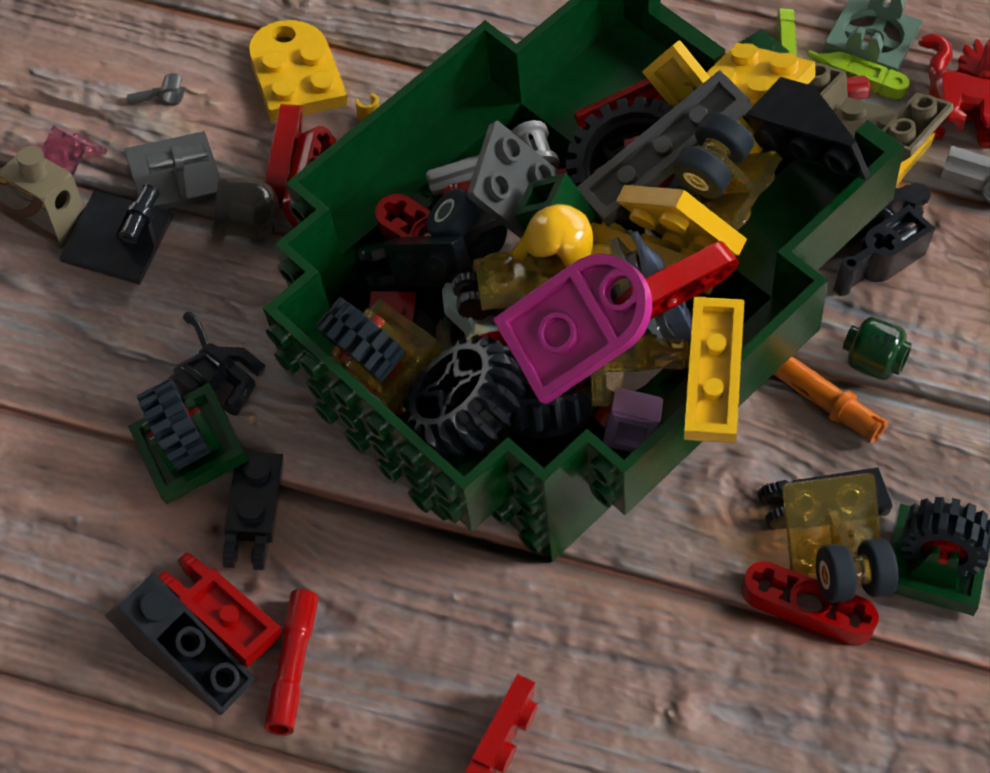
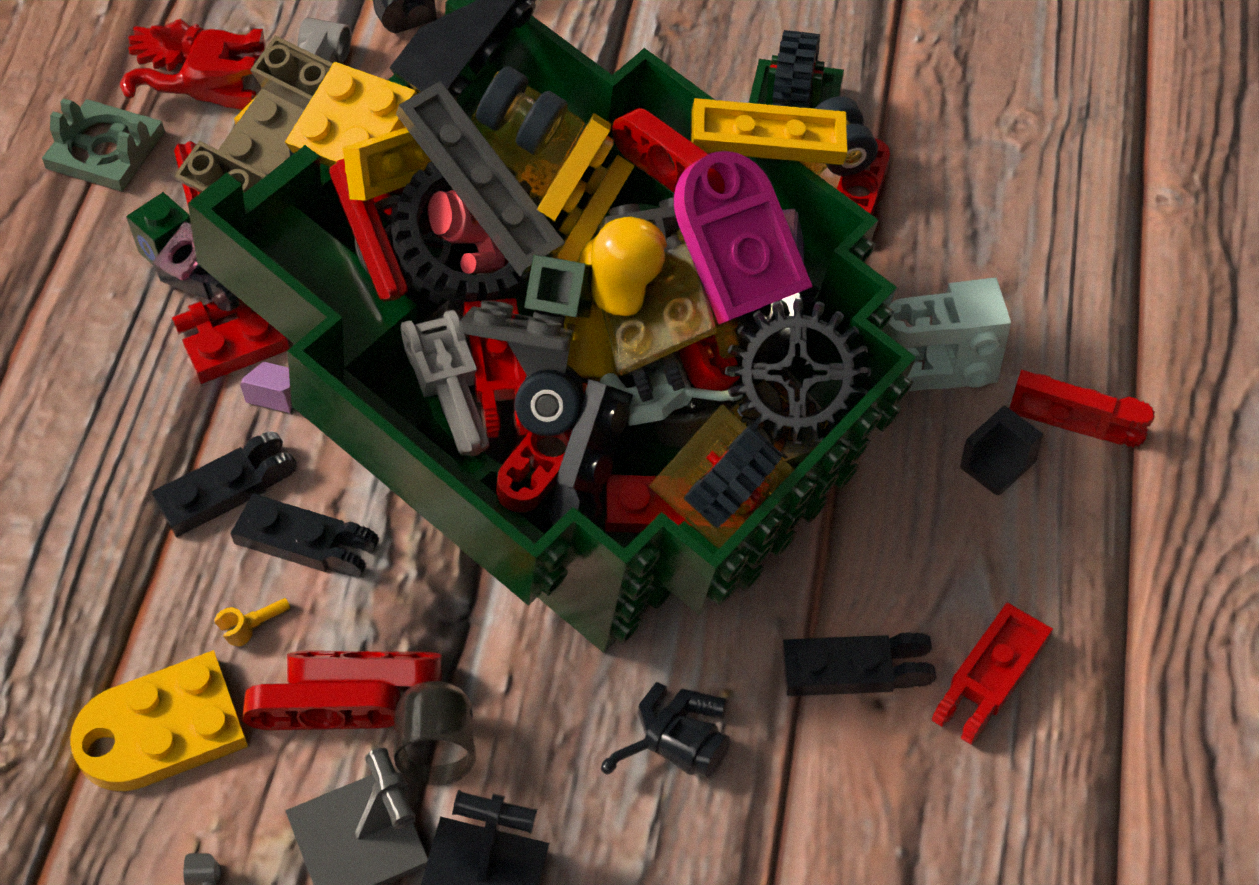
camera: 90 degrees left, 0 degrees up
(179, 643) = (1043, 704): black slope -> none
(185, 438) = (795, 732): dark green plate -> none
(286, 689) = (1065, 596): red piece -> none
(457, 664) = (1001, 450): none -> black panel
(583, 628) = (964, 338): none -> light aqua brick
(651, 263) = (646, 197): sand blue piece -> none
(786, 29) = (101, 216): lime piece -> none
(884, 81) = (159, 156): lime piece -> none

